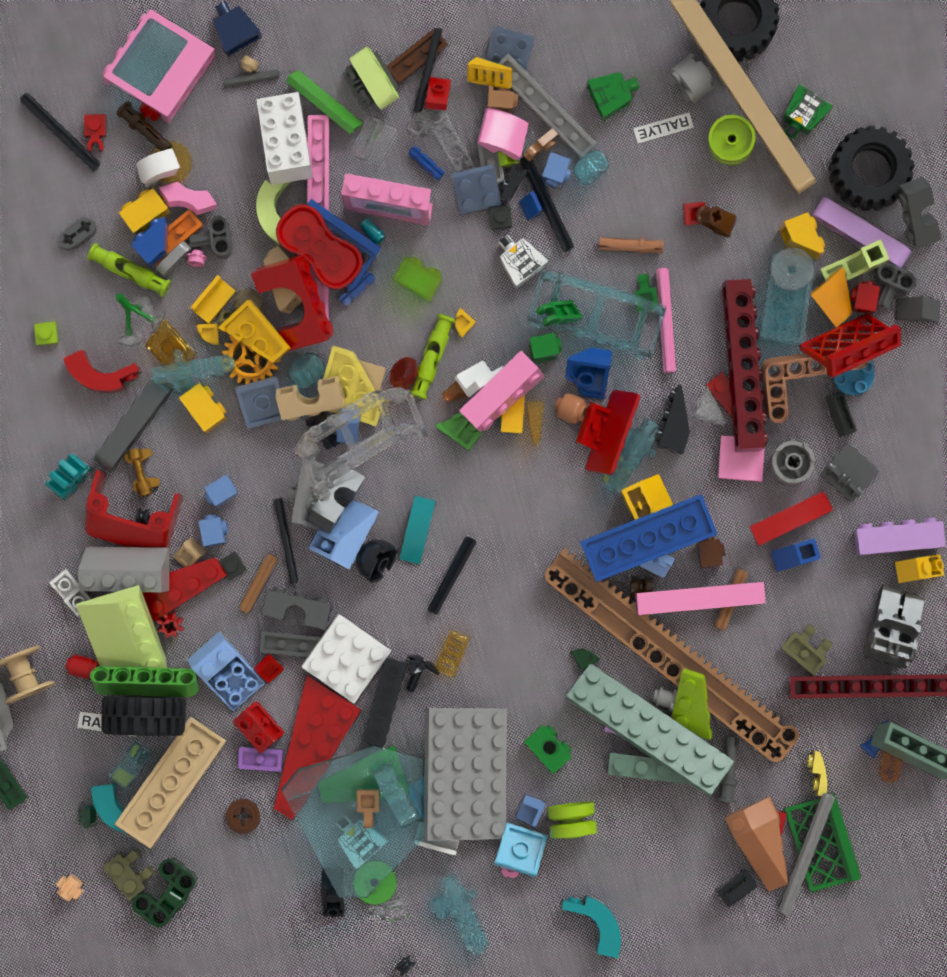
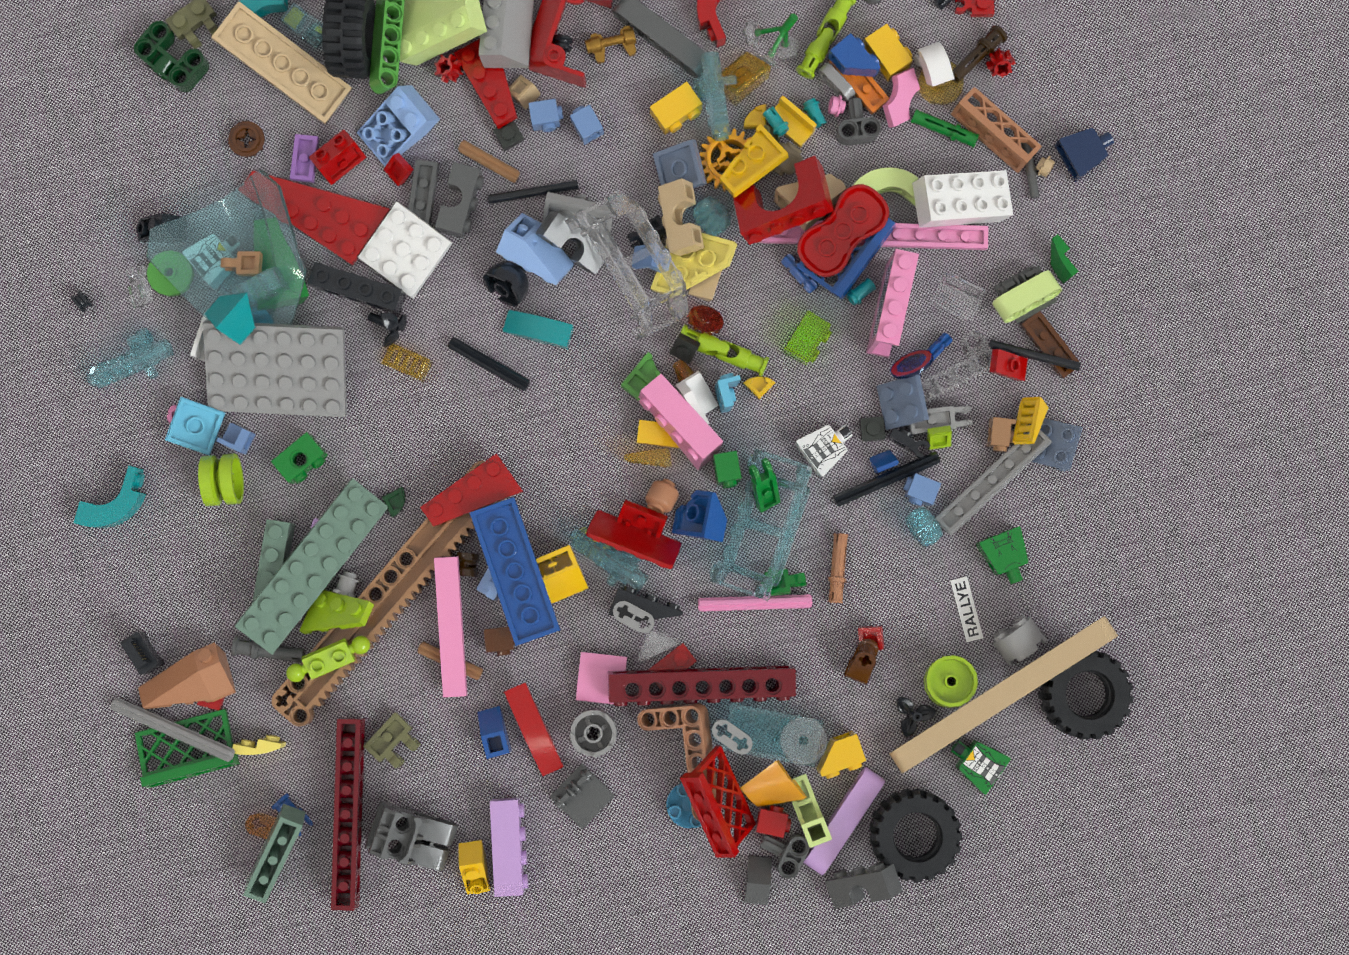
camera: 85 degrees right, 0 degrees up
(159, 64) = (1045, 70): panel -> none
(203, 278) = (814, 112): none -> teal pin
(214, 313) = (776, 122): none -> teal pin
(221, 114) = (993, 133): none -> nougat fence
(224, 133) = (945, 128): none -> green pin
(324, 102) = (1002, 244): bright green tile -> none
(339, 49) = (1060, 263): none -> green slope
(421, 810) = (232, 316): none -> teal slope
(432, 391) = (684, 348): none -> pearl dark grey plate
(440, 181) = (912, 364): none -> piece
(476, 352) = (724, 392): none -> medium azure bracket
(503, 133) = (963, 433): bright pink slope -> none
(545, 143) = (951, 477): medium nougat plate -> none
(573, 578) = (477, 489): none -> red wing
(681, 426) = (630, 621): none -> light grey beam
(735, 709) = (328, 658): none -> lime plate
(762, 167) = (922, 713): none -> black plant
(795, 336) = (735, 731): none -> light grey beam
(841, 414) = (645, 789): pearl dark grey plate -> none

